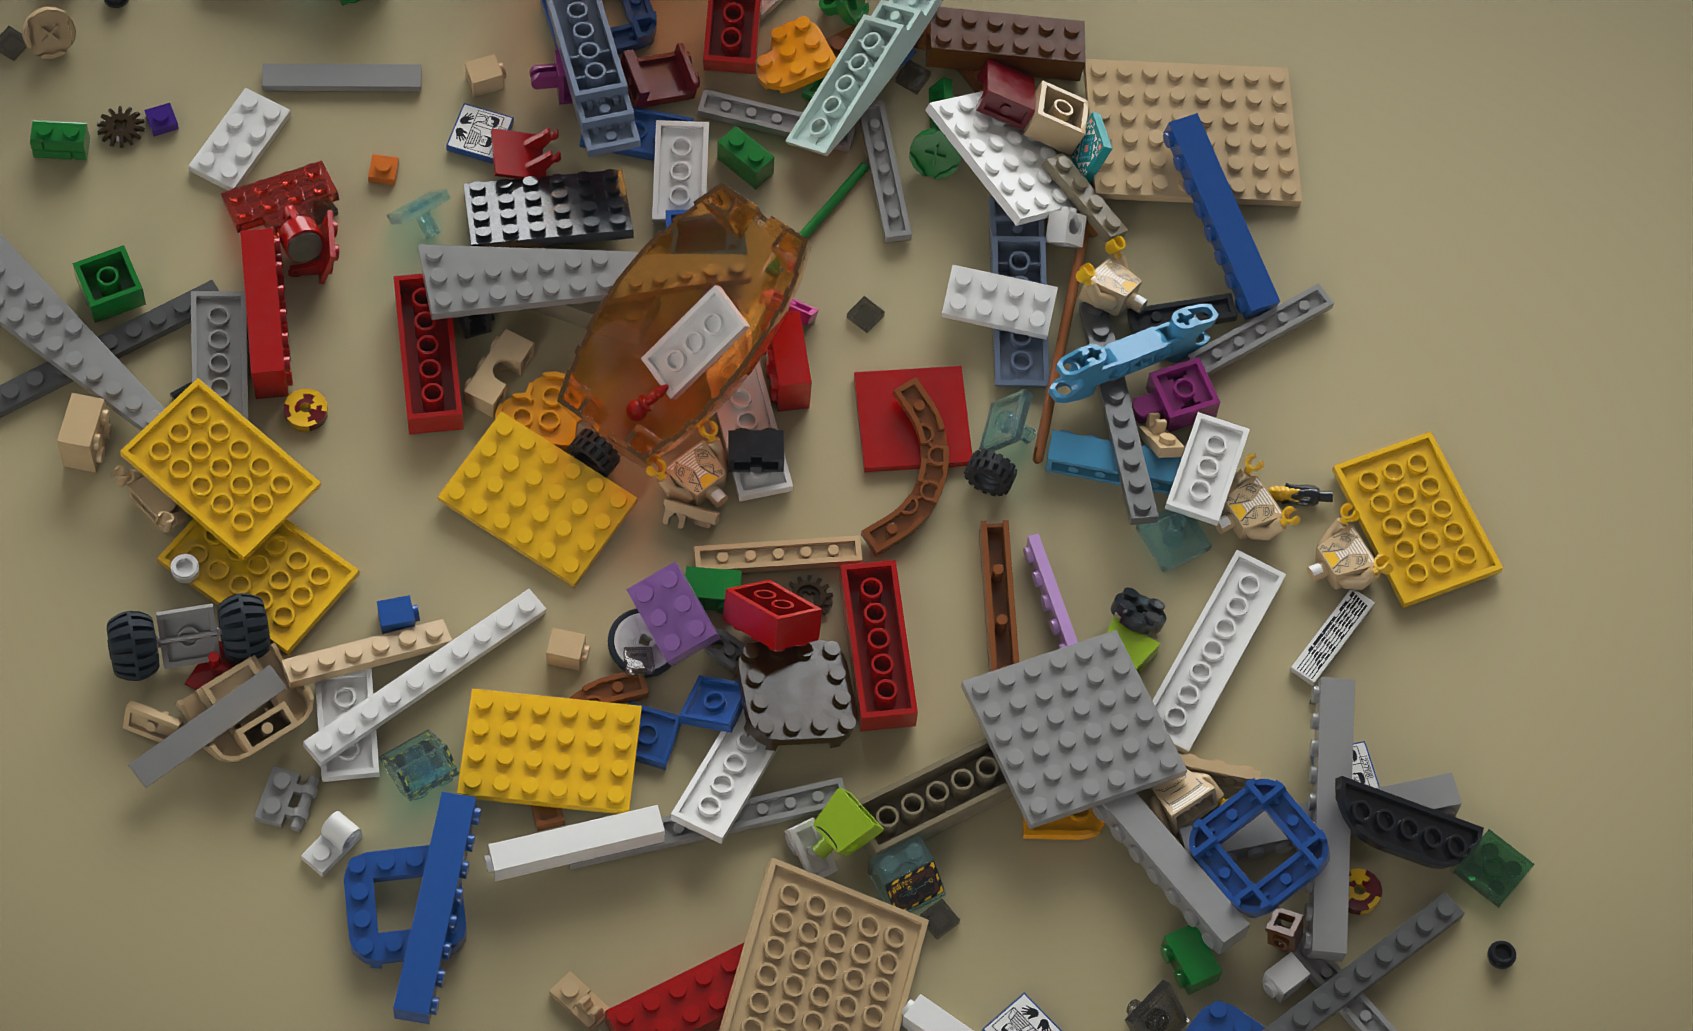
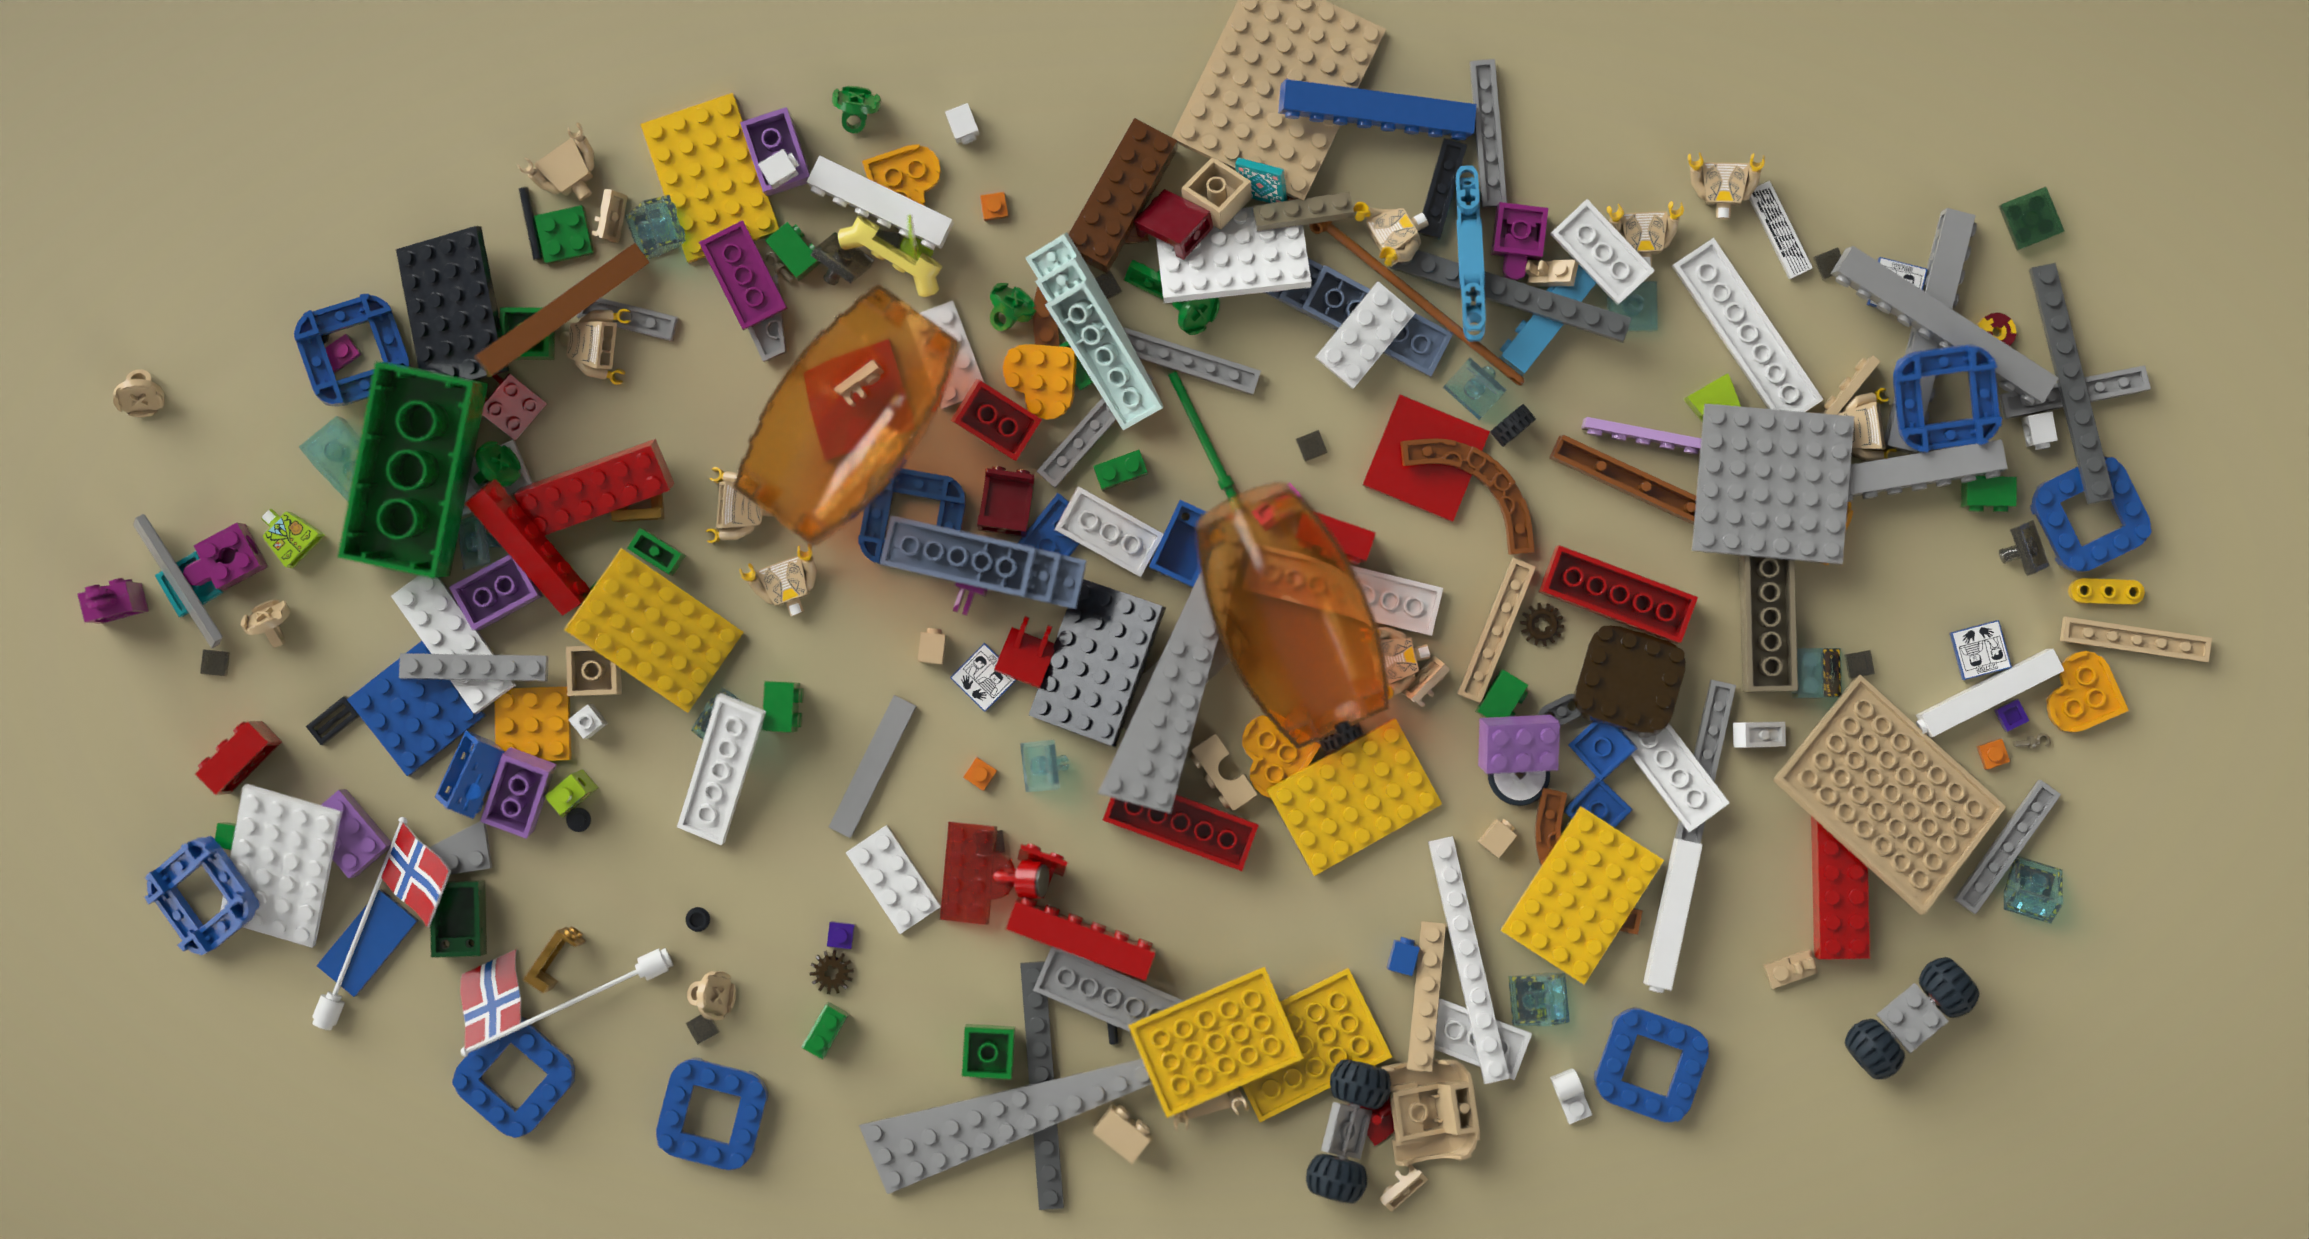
camera: 55 degrees left, 25 degrees up
(185, 568) = (1282, 1105): white tile -> none
(207, 726) = (1433, 1150): light grey tile -> none
(278, 796) = (1509, 1118): light grey plate -> none
(308, 420) = (1173, 952): yellow piece -> none
(435, 908) = (1678, 1048): blue brick -> none
(638, 408) = (1314, 678): red bar -> none
(638, 660) = (1538, 788): clear smoke tile -> none
(695, 342) = (1297, 609): white plate -> none
(755, 449) = (1404, 598): black brick -> none
(772, 615) = (1561, 668): red brick -> none
(844, 825) = (1768, 704): lime torso -> none
(1066, 228) = (1324, 243): white brick -> none
(1139, 611) = (1690, 362): black plate -> none
(1281, 936) = (2016, 414): reddish brown brick -> none
(1300, 494) = (1648, 184): black piece -> none
(1404, 826) = (1980, 272): black plate -> none
(1417, 519) = (1715, 104): yellow plate -> none
(1501, 954) = (2100, 253): black plate -> none

